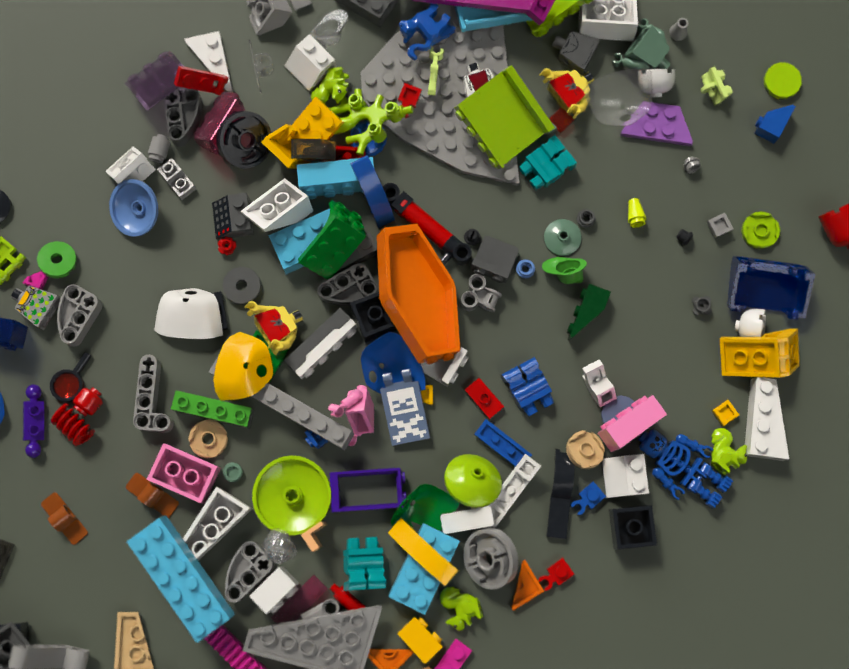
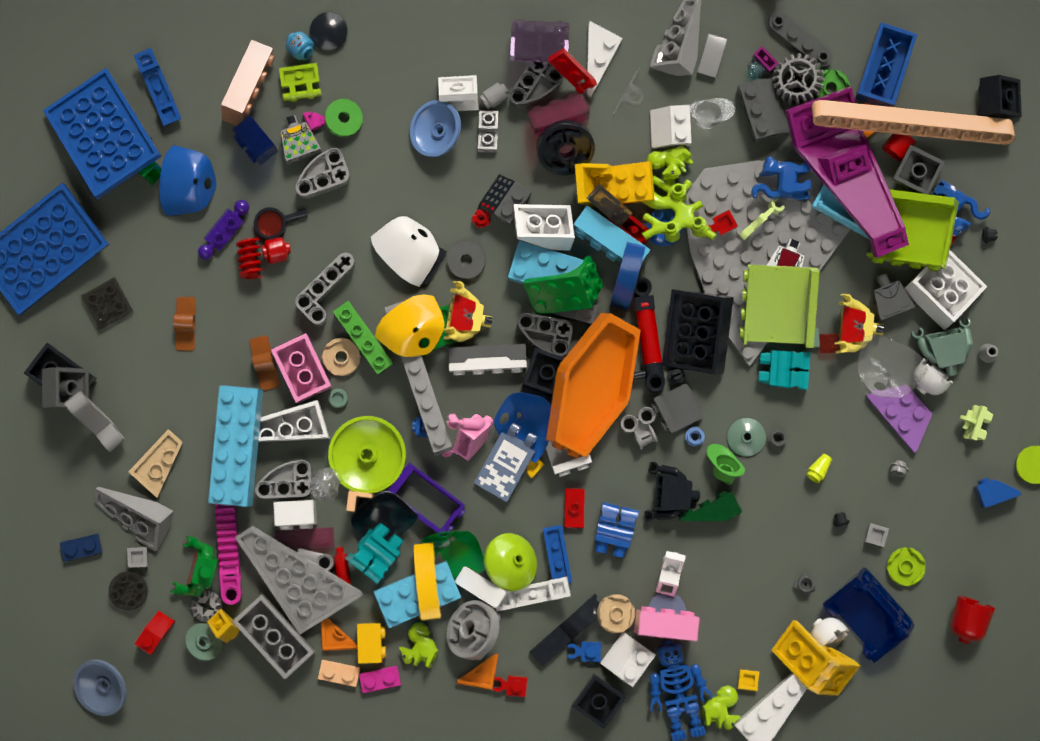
camera: 40 degrees right, 5 degrees up
(349, 522) = (392, 513): none -> black piece
(459, 189) = (698, 331): none -> black slope
(546, 323) = (672, 493): none -> black torso

